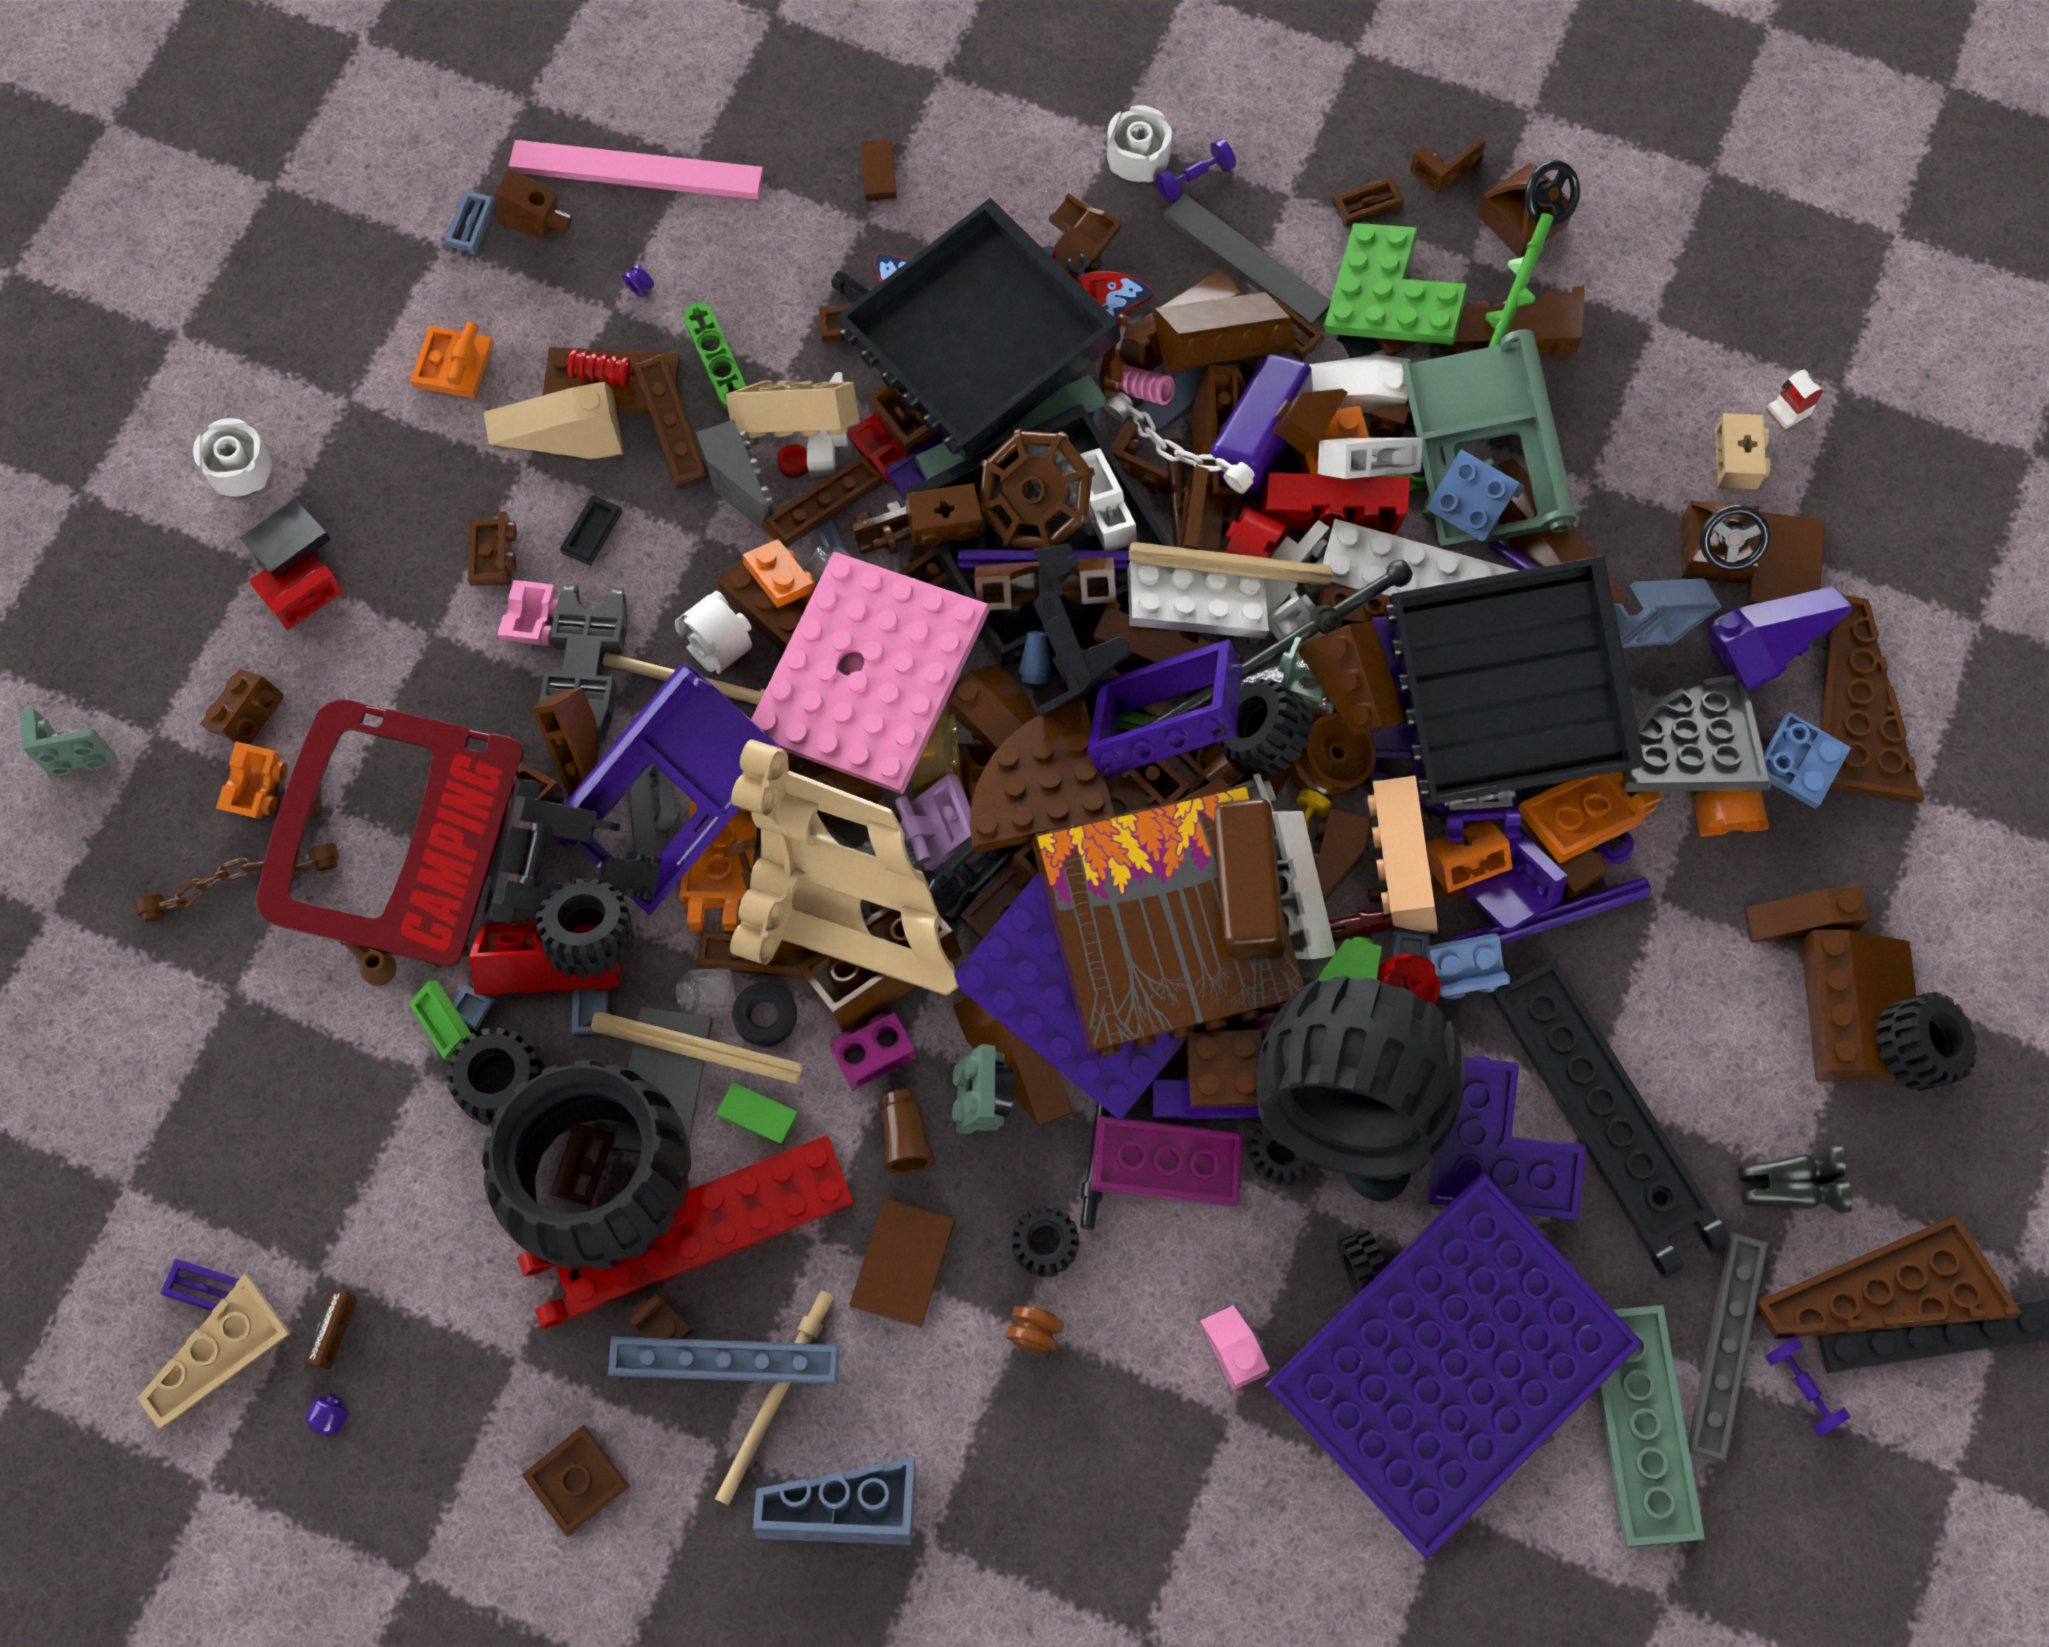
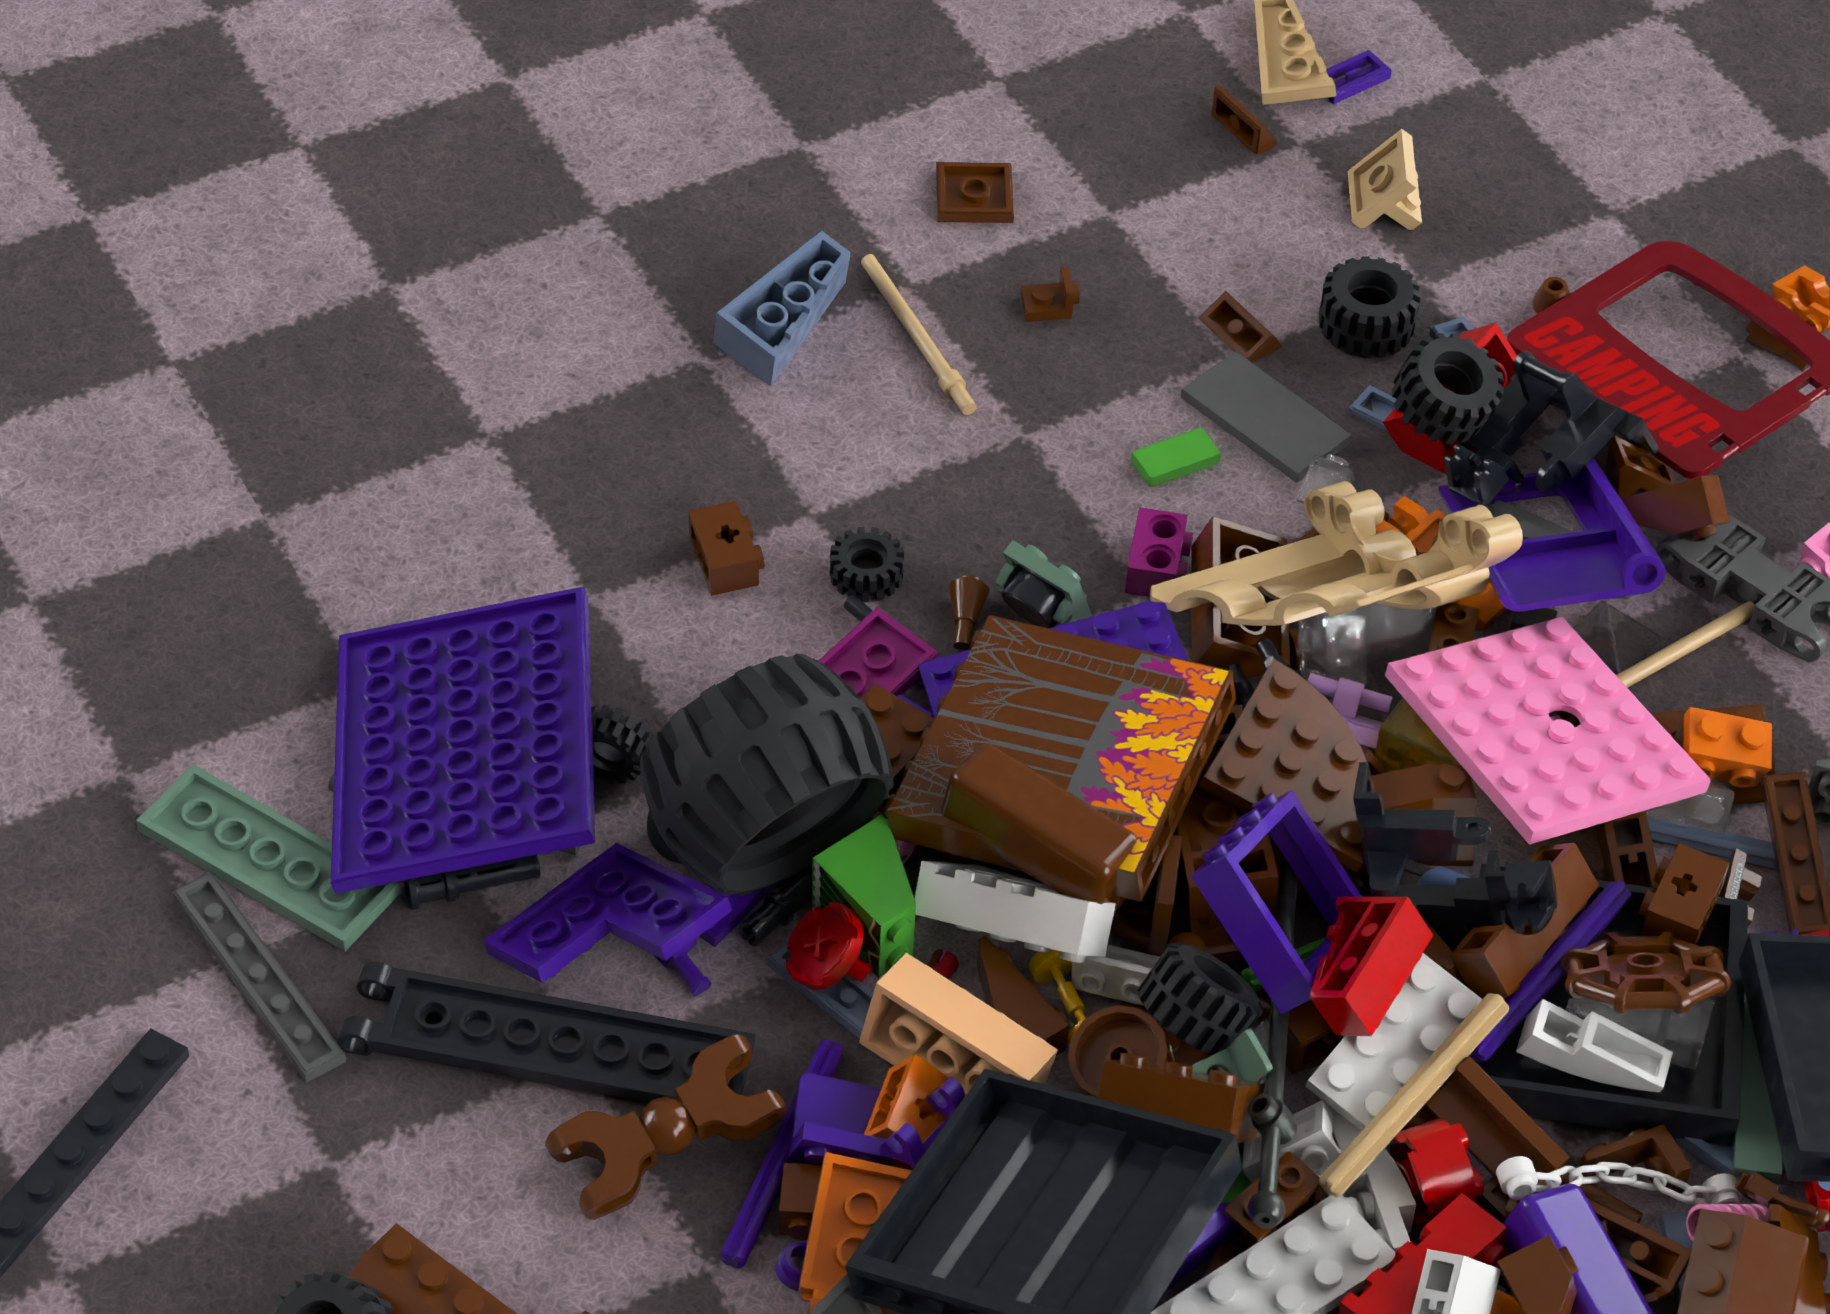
camera: 125 degrees right, 20 degrees down
(153, 906) = (1739, 198): reddish brown piece -> none
(326, 1414) = (1175, 92): dark purple piece -> none
(340, 1159) = (1386, 184): none -> tan bracket
(440, 1019) = (1460, 307): bright green tile -> none
(550, 1107) = (1232, 225): black tyre -> none
(697, 1047) = (1273, 441): tan axle -> none
(709, 1226) = (1111, 365): red hinge -> none
(714, 632) = (1703, 673): white brick -> none
(724, 1360) = (975, 309): sand blue tile -> none
(760, 993) = (1271, 493): black tyre -> none
(902, 1262) = (947, 471): reddish brown tile -> none
(904, 1133) = (1058, 528): reddish brown plant -> none
(1022, 1145) = (967, 600): none -> reddish brown cone
(1034, 1329) = (797, 502): dark orange wheel -> none
(1108, 1372) = (725, 547): none -> reddish brown brick
(1176, 629) = (1367, 961): none -> red wedge
(1235, 1347) = (641, 623): bright pink slope -> none
(1468, 965) = (798, 1032): medium blue bracket -> none
(1639, 994) = (665, 1126): none -> reddish brown piece
(1793, 1181) = (329, 1134): pearl dark grey piece -> none
(1808, 1387) = (115, 989): dark purple wheel -> none
(1908, 1283) = (149, 1145): reddish brown wing -> none

